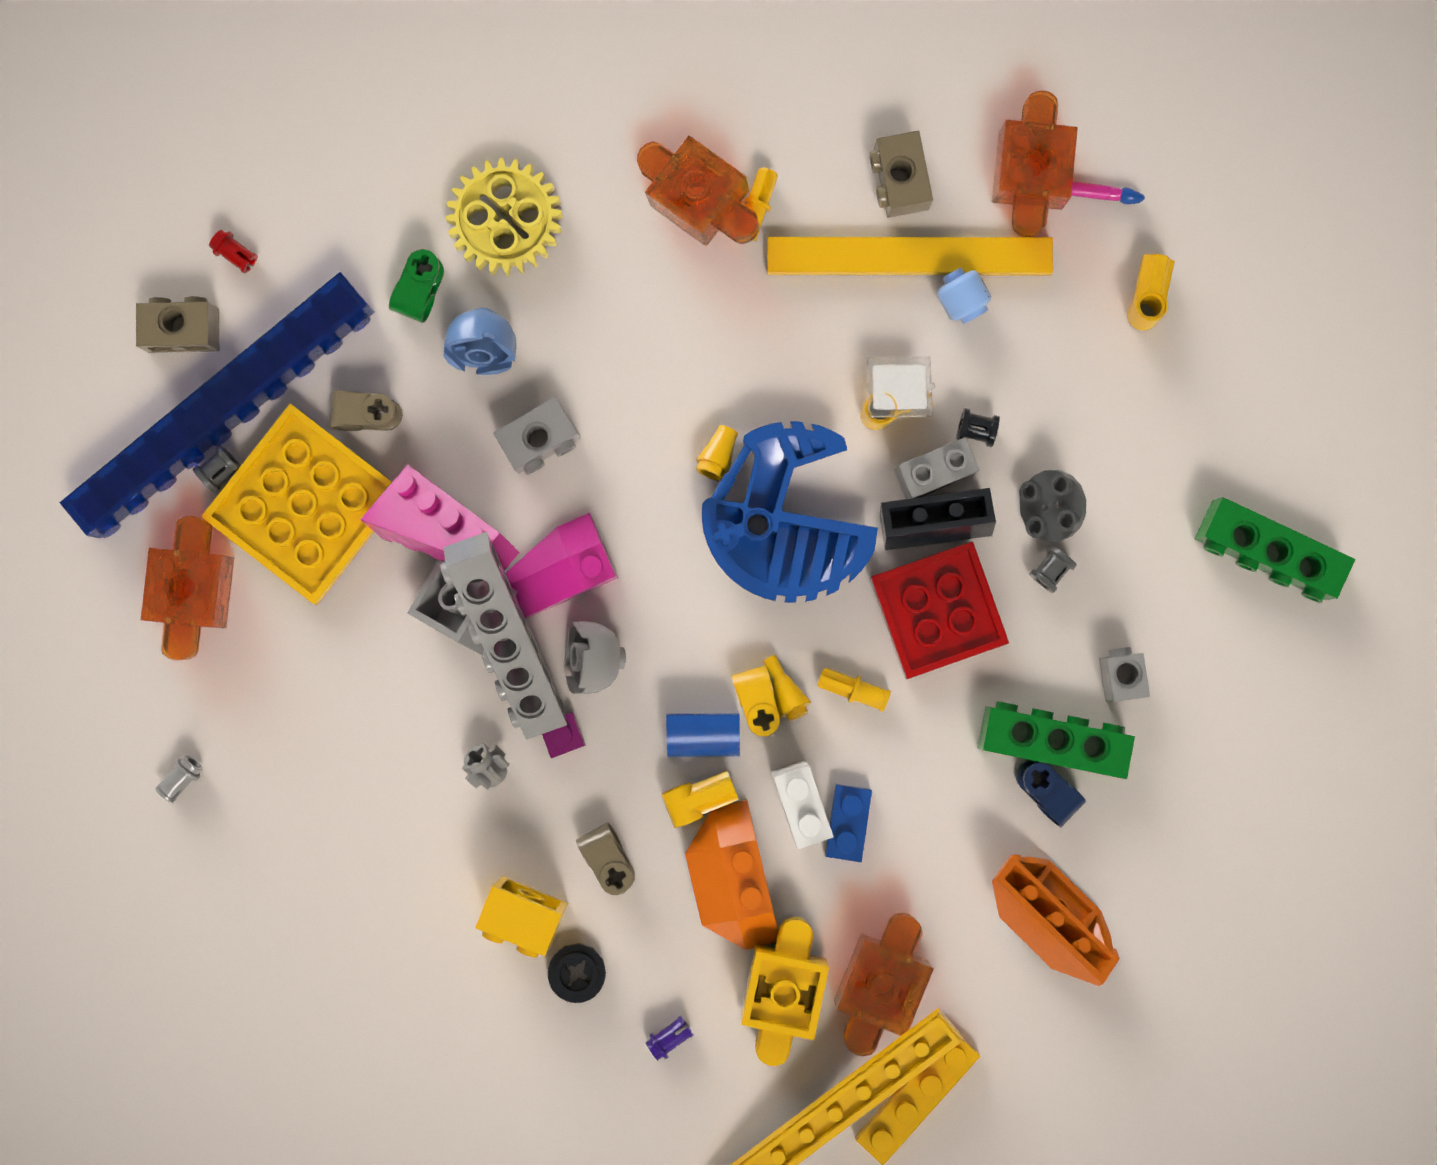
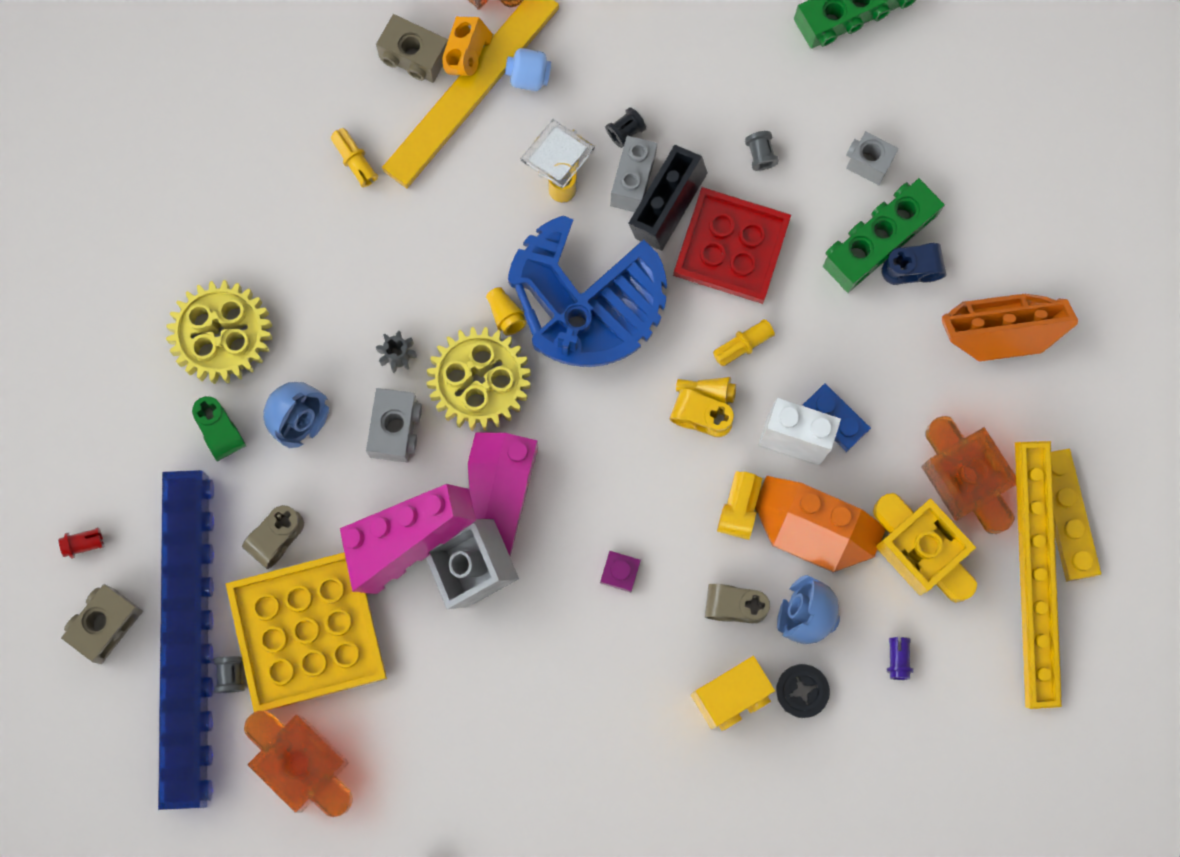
camera: 60 degrees left, 10 degrees down
(477, 559) = (450, 519): light grey brick -> none
(485, 766) = (601, 641): light grey gear -> none
(593, 657) = (580, 504): light grey cylinder -> none
(600, 378) = (400, 344): none -> dark grey gear
(628, 509) = (461, 357): none -> light yellow gear
(647, 930) = (809, 613): none -> medium blue cylinder
(698, 191) = (310, 174): clear orange brick -> none
(703, 735) = (697, 469): blue brick -> none
(940, 221) = (465, 46): none -> light orange leg
(1055, 522) = (705, 110): dark grey plate -> none

